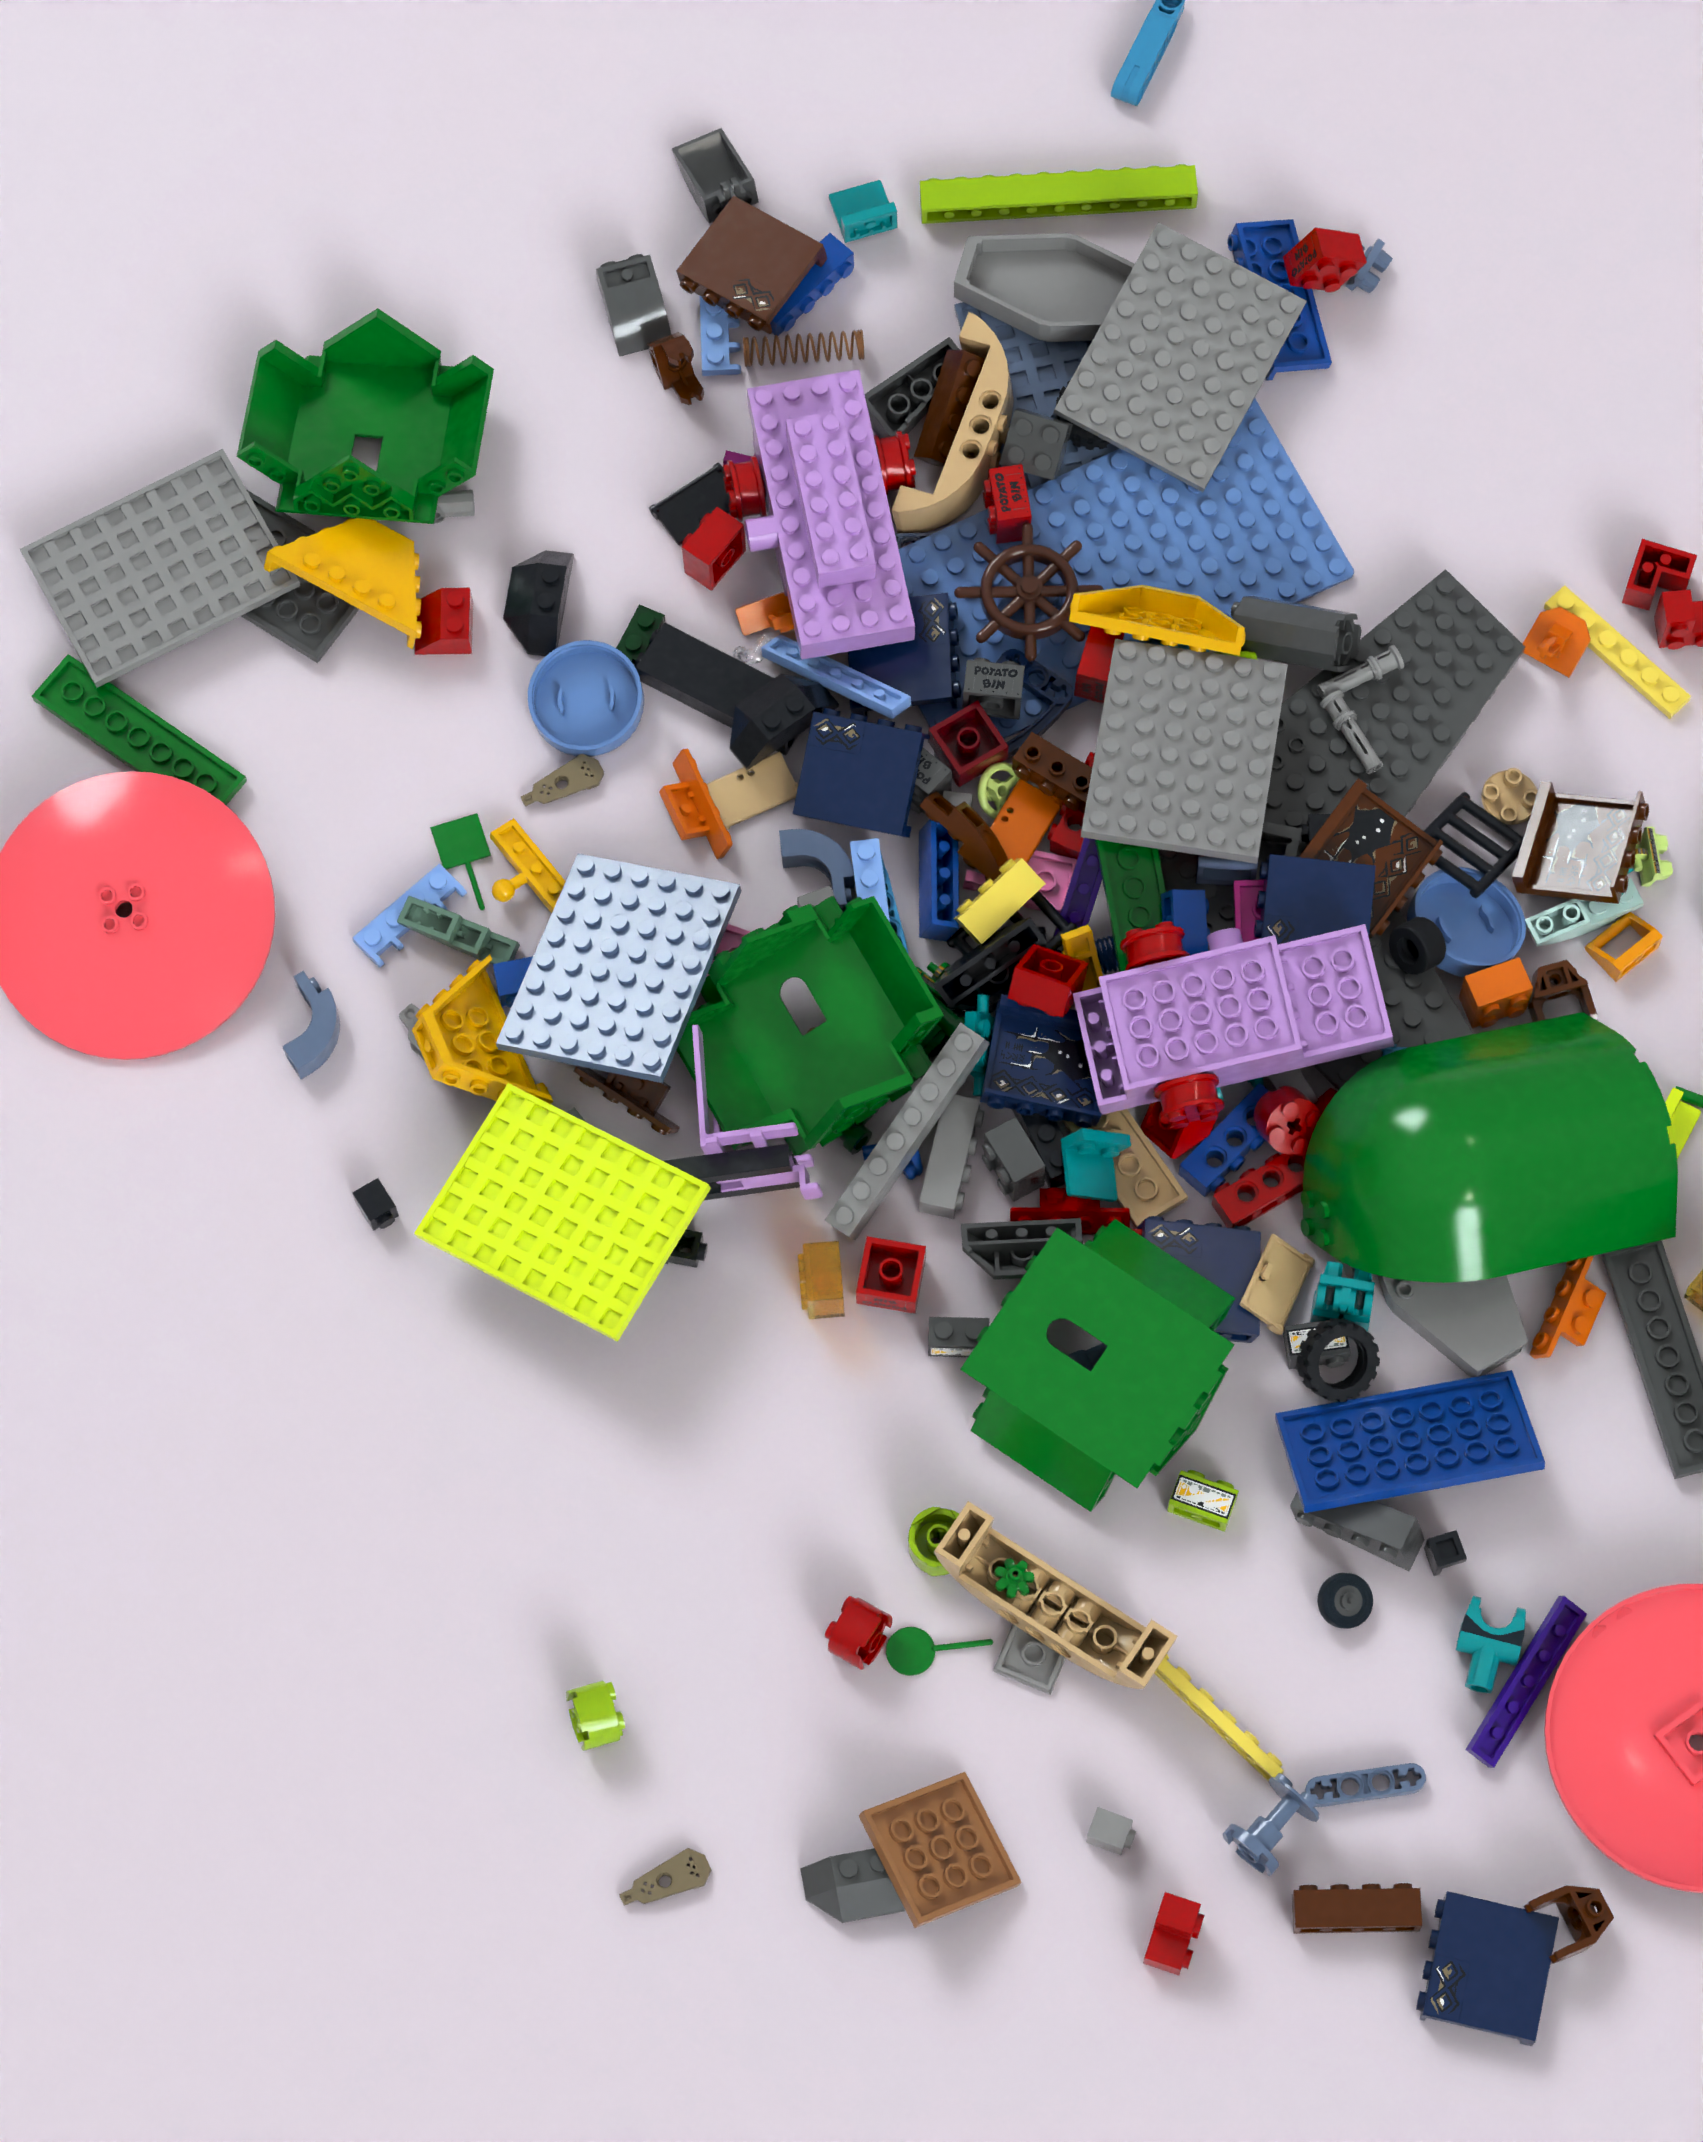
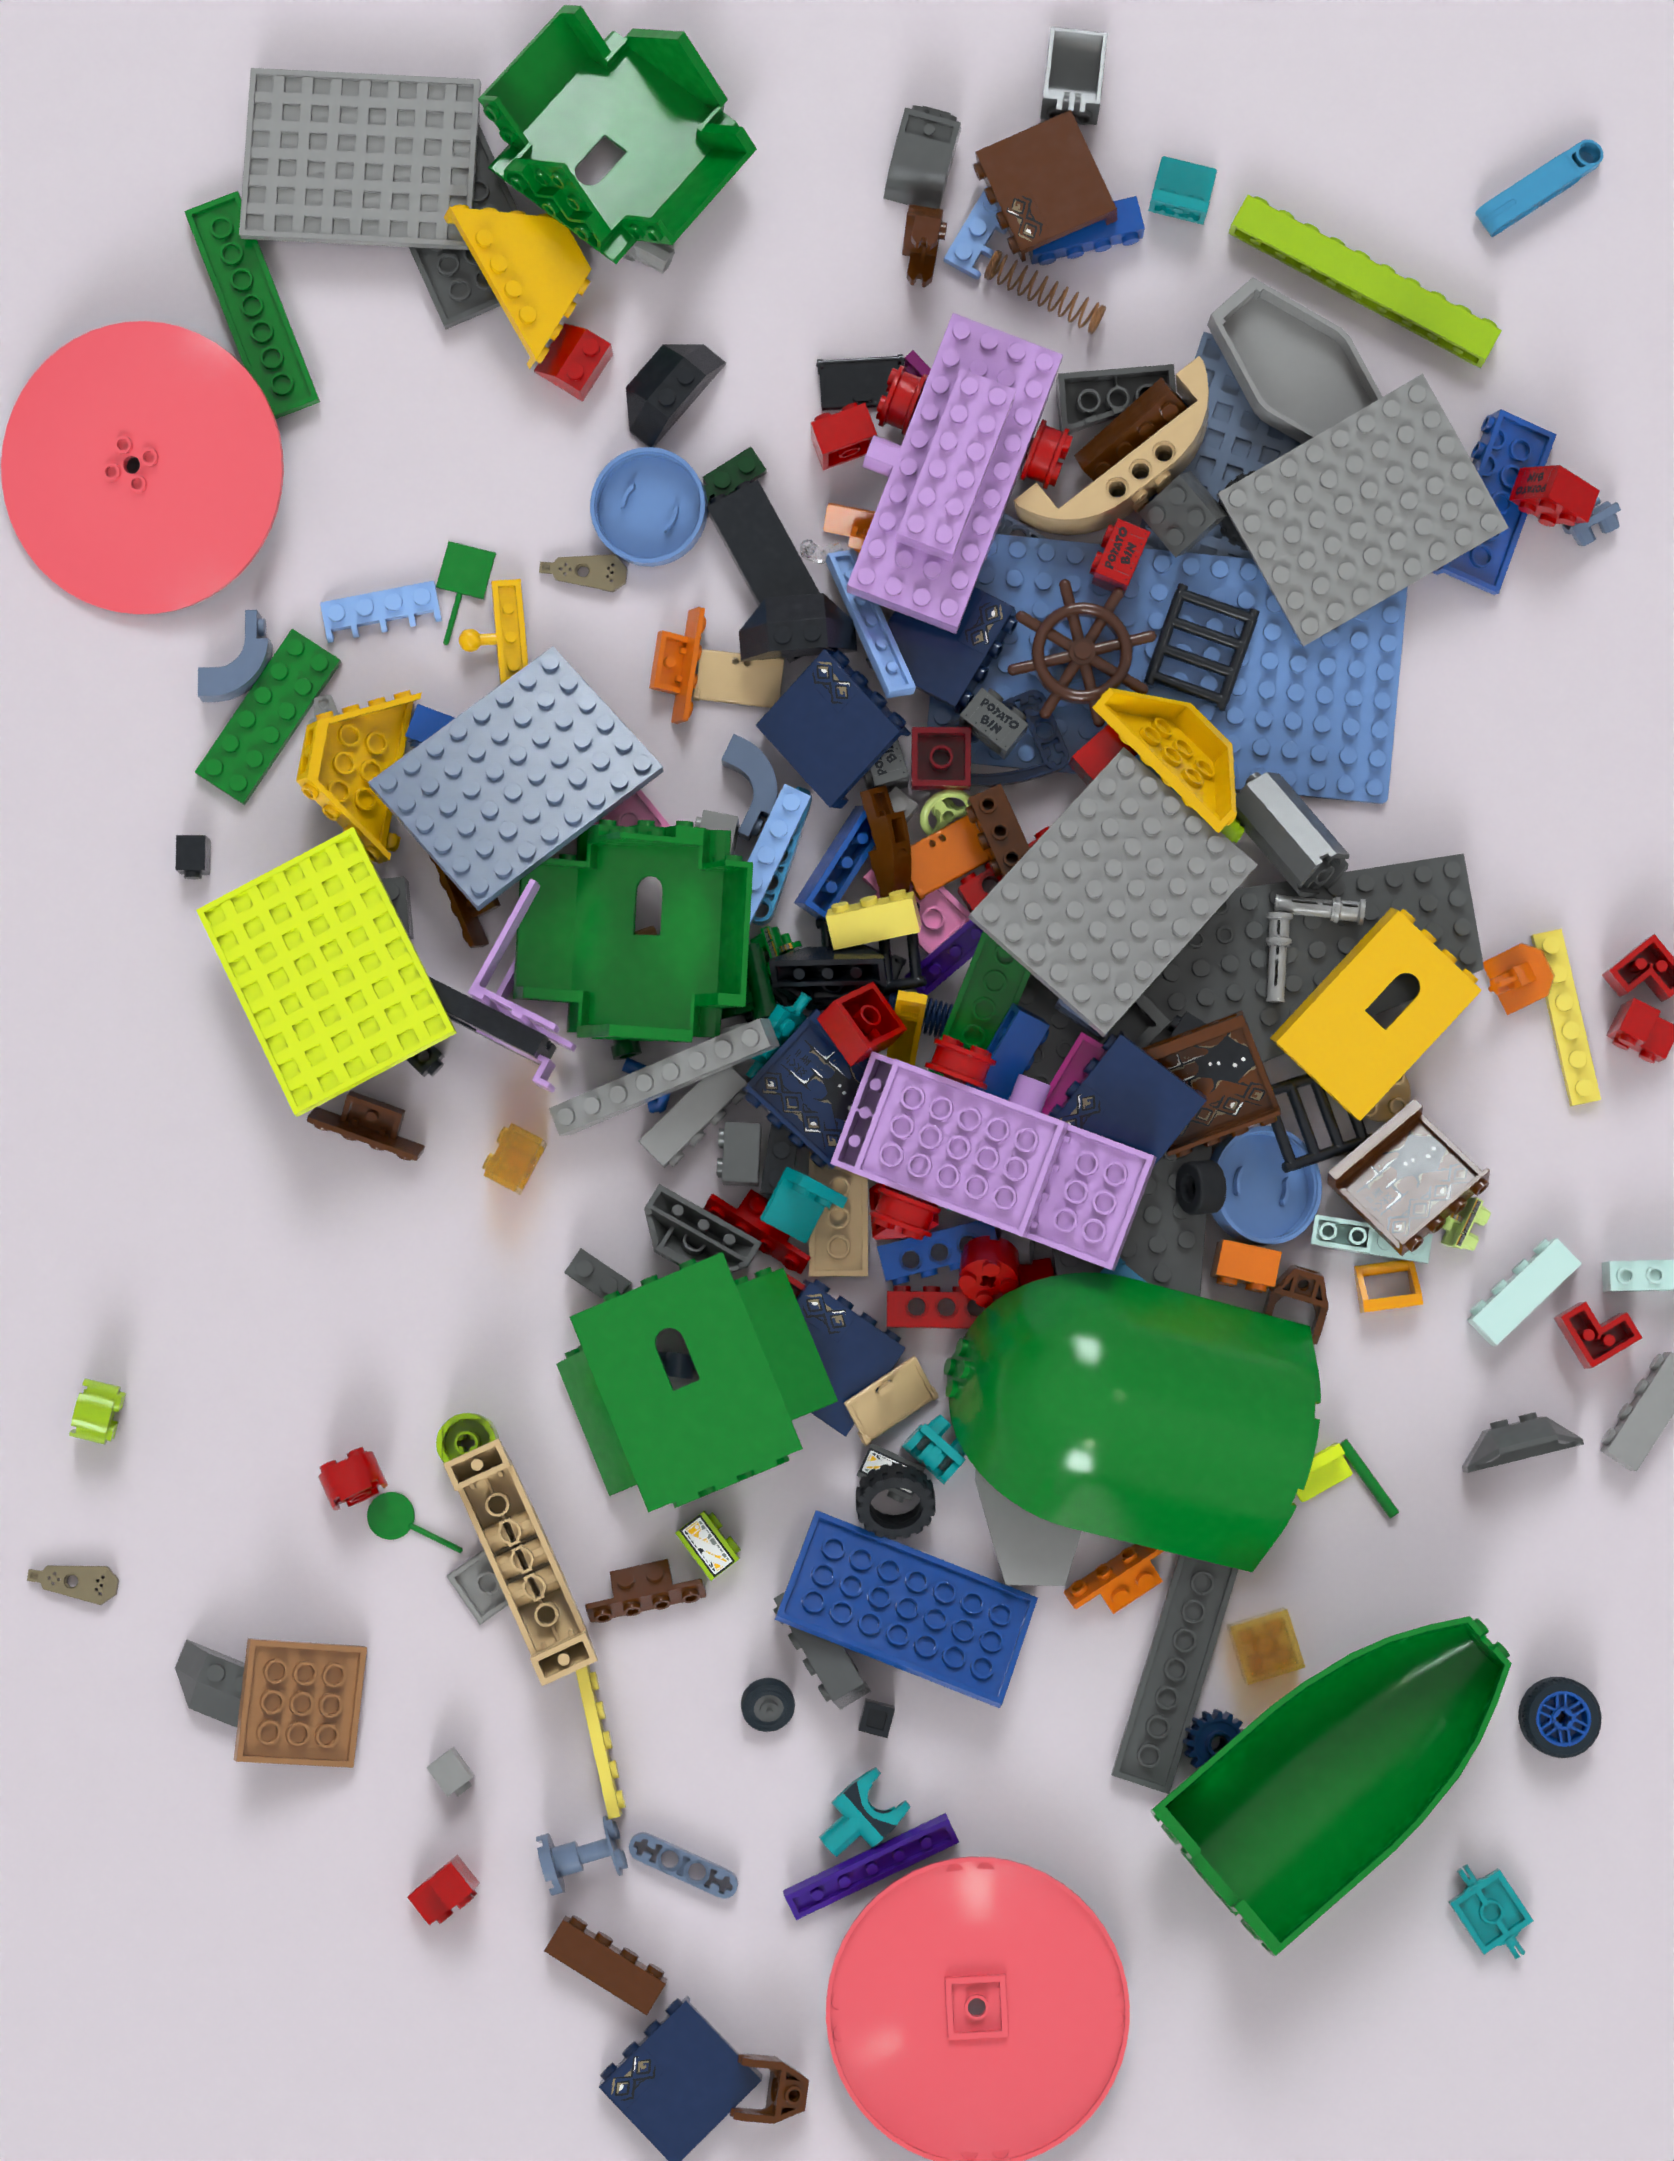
camera: 30 degrees right, 15 degrees up
(366, 1057) = (268, 716): none -> green plate
(456, 932) = (409, 654): sand green slope -> none
(675, 1329) = (370, 1123): none -> reddish brown bracket
(891, 1274) = (575, 1189): red brick -> none
(1013, 1583) = (503, 1512): green plant -> none
(1151, 519) = (1239, 645): none -> black bar
(1174, 1573) = (644, 1589): none -> reddish brown bracket
(1452, 767) = (1344, 1045): none -> yellow panel

